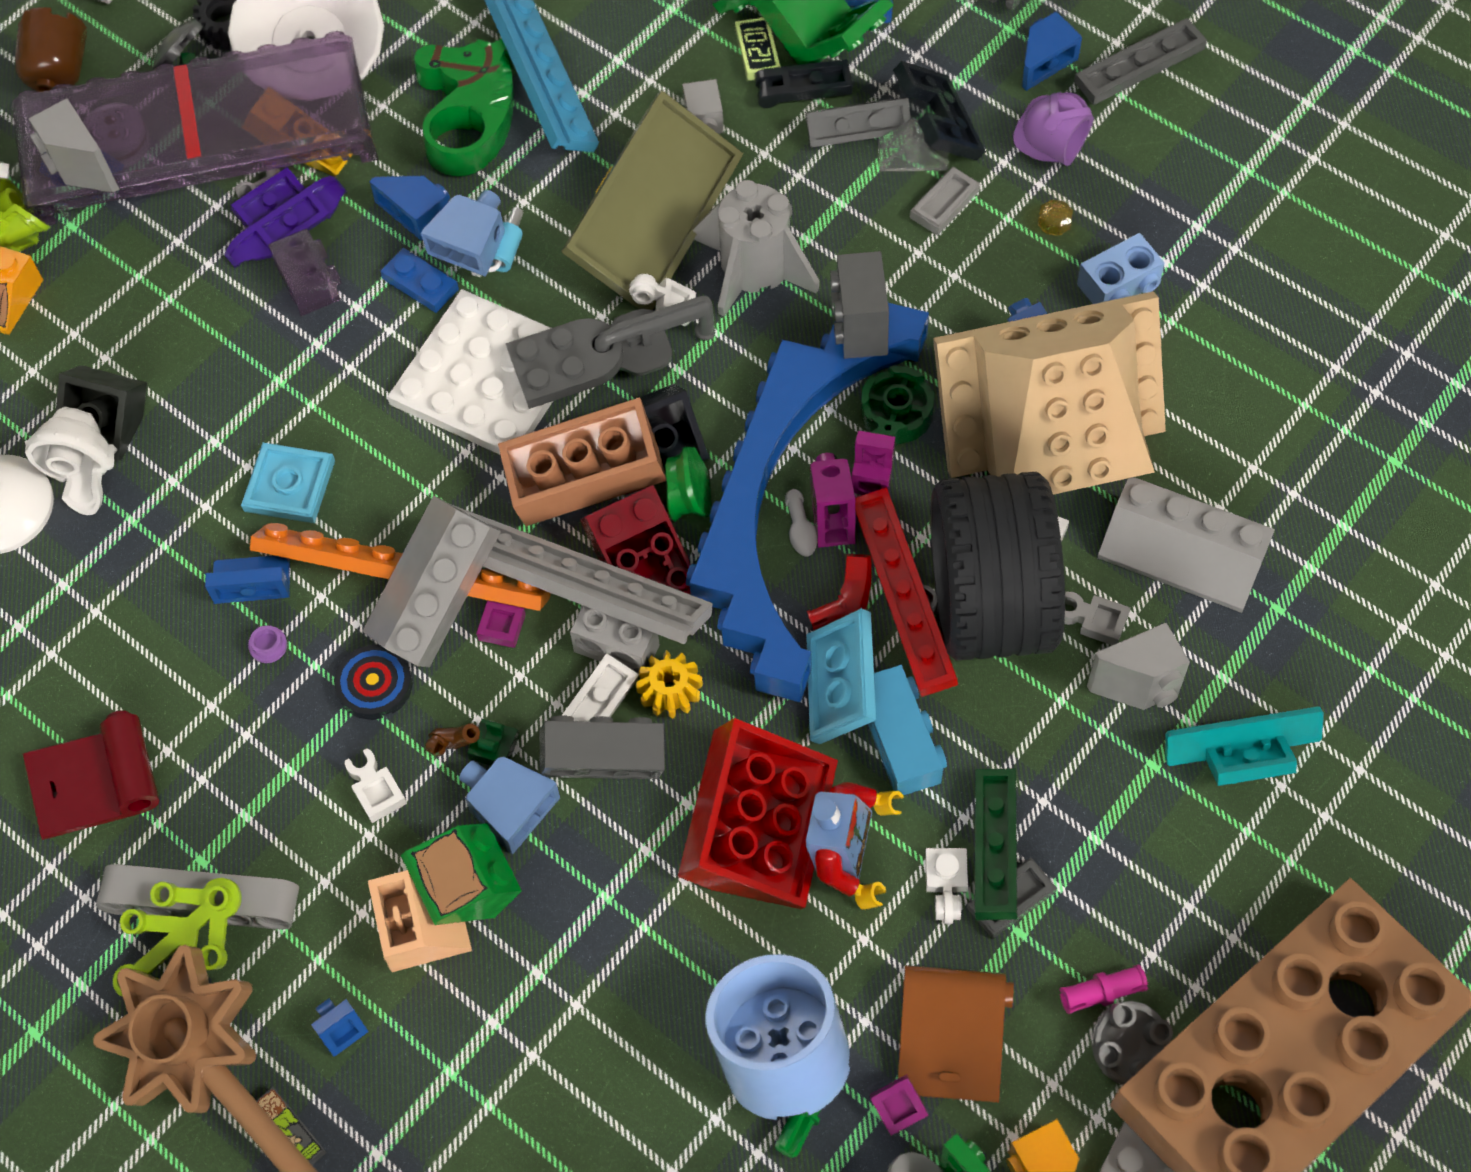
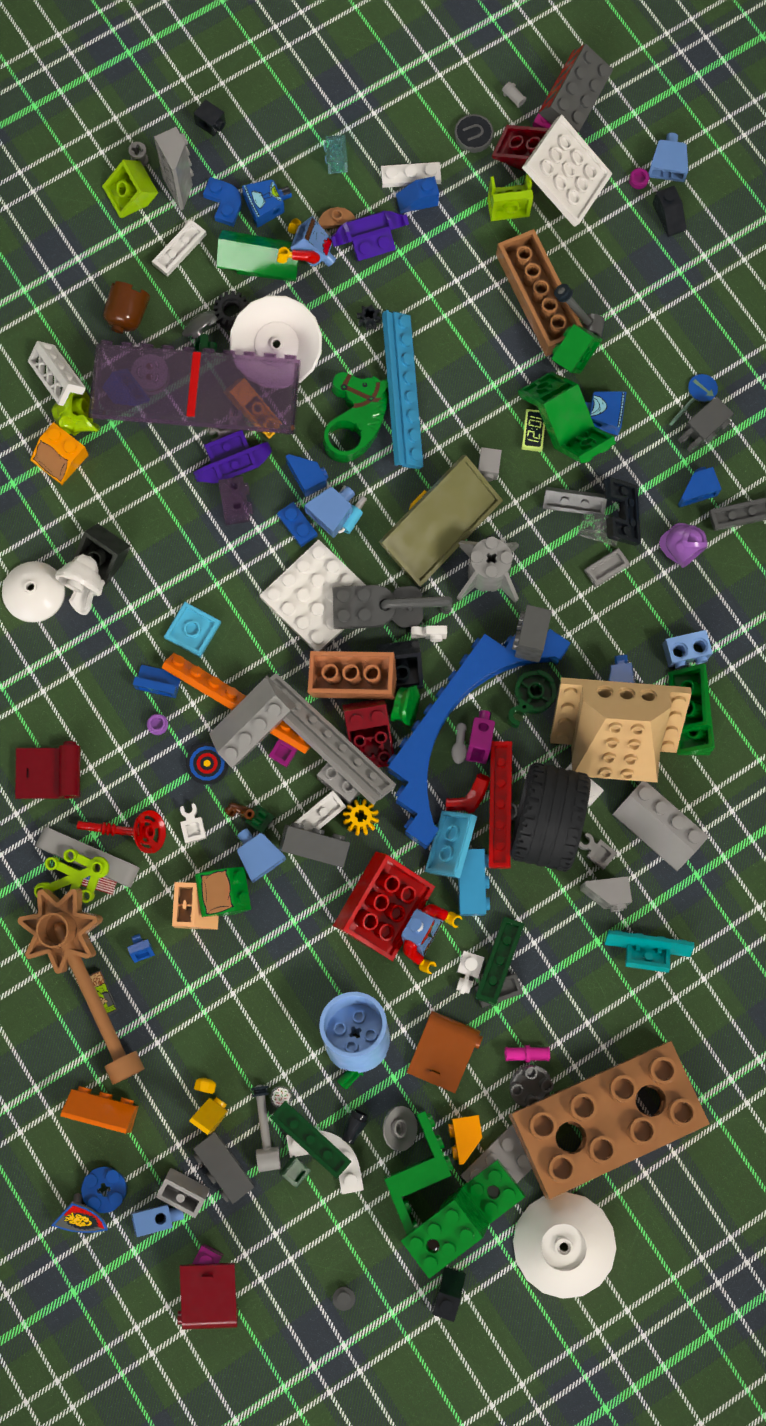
camera: 10 degrees right, 15 degrees up
(70, 148) = (121, 395): light grey slope -> none
(237, 938) = (104, 884): none -> sticker
(288, 822) = (139, 833): none -> red dish
(668, 292) = (433, 584): white plate -> none
(695, 368) = (434, 633): none -> white plate
(803, 82) = (551, 463): black plate -> none
(872, 462) = (508, 726): magenta slope -> none
(898, 1105) = (404, 1080): magenta plate -> none
(1055, 217) = (665, 599): clear yellow tile -> none
(1190, 383) = (697, 731): none -> green slope

